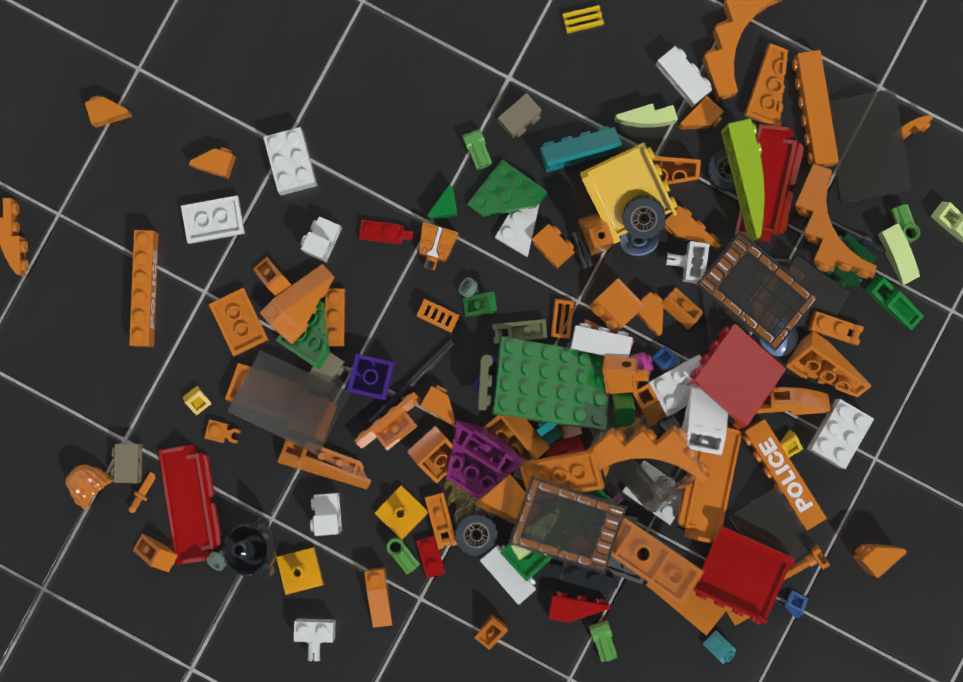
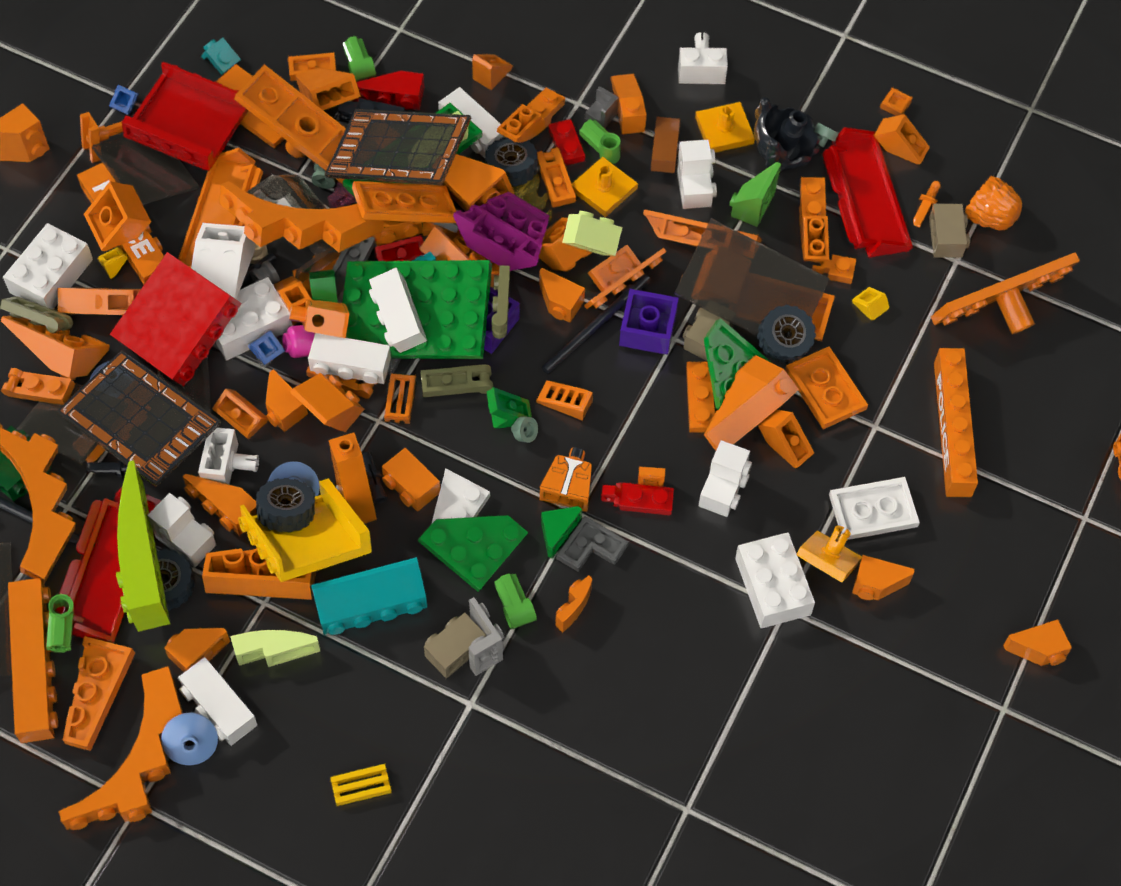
camera: 175 degrees right, 25 degrees down
(89, 398) = (1008, 295): none -> orange plate
(155, 595) = (896, 102): none -> orange tile
(235, 471) = (813, 219): none -> orange slope
(249, 177) = (830, 553): none -> light orange tile
(255, 356) = (786, 320): none -> black wheel
(281, 492) = (755, 196): none -> bright green slope
(349, 552) = (665, 144): none -> dark orange slope
(375, 245) = (651, 476): none -> orange tile
(401, 587) = (604, 107): none -> flat silver panel
(412, 449) = (592, 234): none -> yellowish green brick
(422, 200) = (590, 538): none -> dark grey tile
(431, 151) = (578, 597): none -> orange slope
(459, 573) = (533, 118): none -> orange slope
(498, 104) = (484, 650): none -> light grey bracket
(565, 374) = (397, 310): none -> white brick
(630, 602) = (327, 87): none -> orange slope
(642, 635) = (304, 63): none -> orange plate
(701, 47) = (189, 727): none -> medium blue dish
(717, 203) = (179, 531): none -> white brick
(790, 471) = (117, 216): none -> orange slope
(797, 126) = (60, 625): none -> bright green piece
(843, 390) = (37, 314): none -> olive plate

